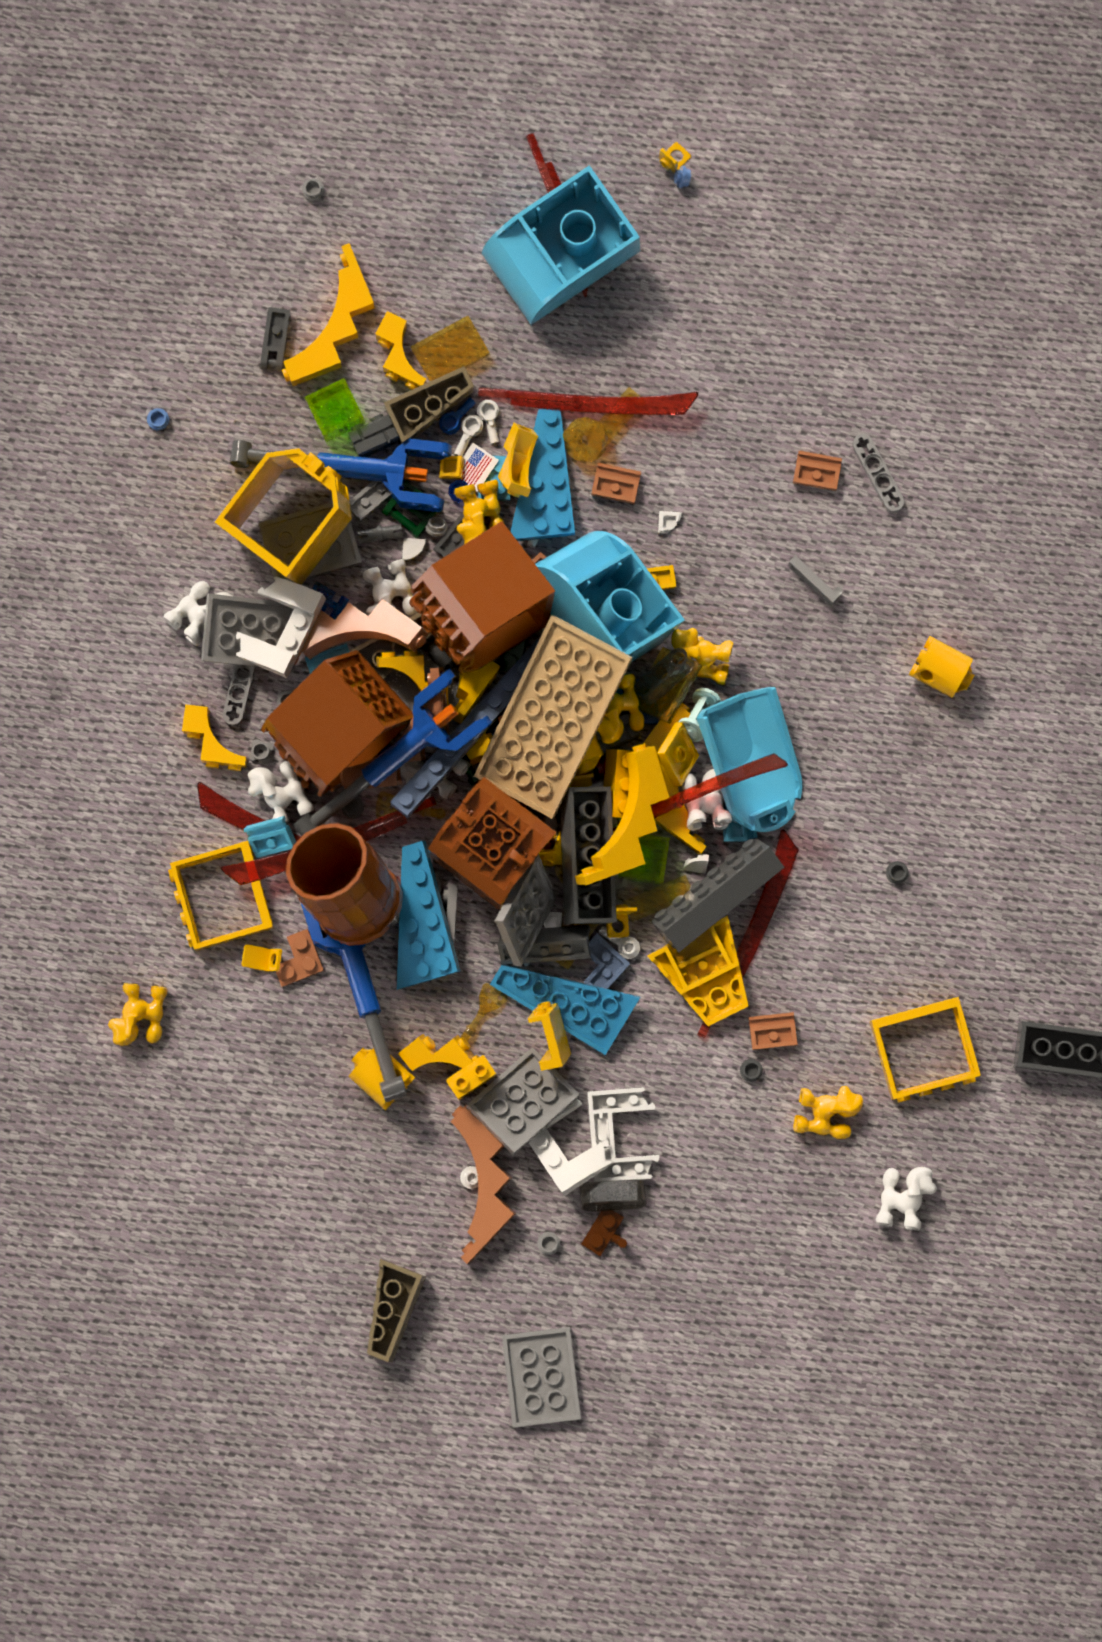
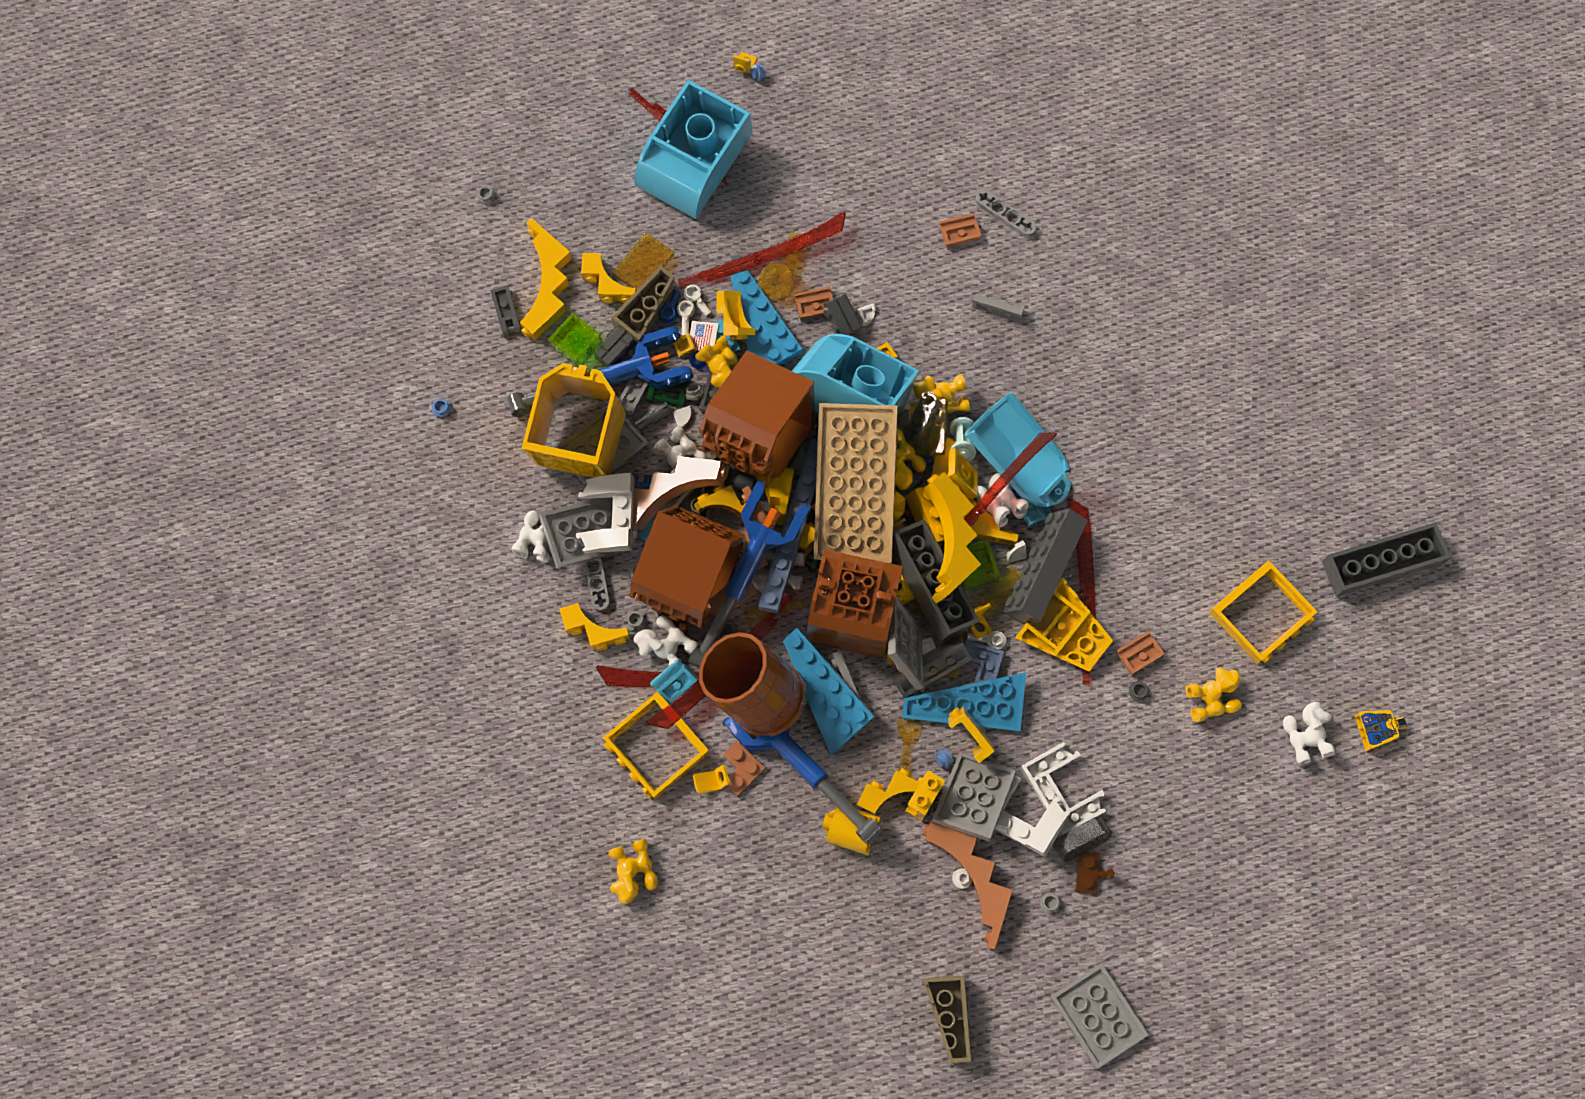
camera: 20 degrees left, 10 degrees down
(512, 1047) = (944, 759): none -> medium blue plate
(637, 513) = (841, 314): none -> dark grey brick
(897, 872) = (1170, 491): dark grey plate -> none
(943, 668) = (1127, 325): yellow cylinder -> none
(981, 1225) = (1378, 727): none -> torso

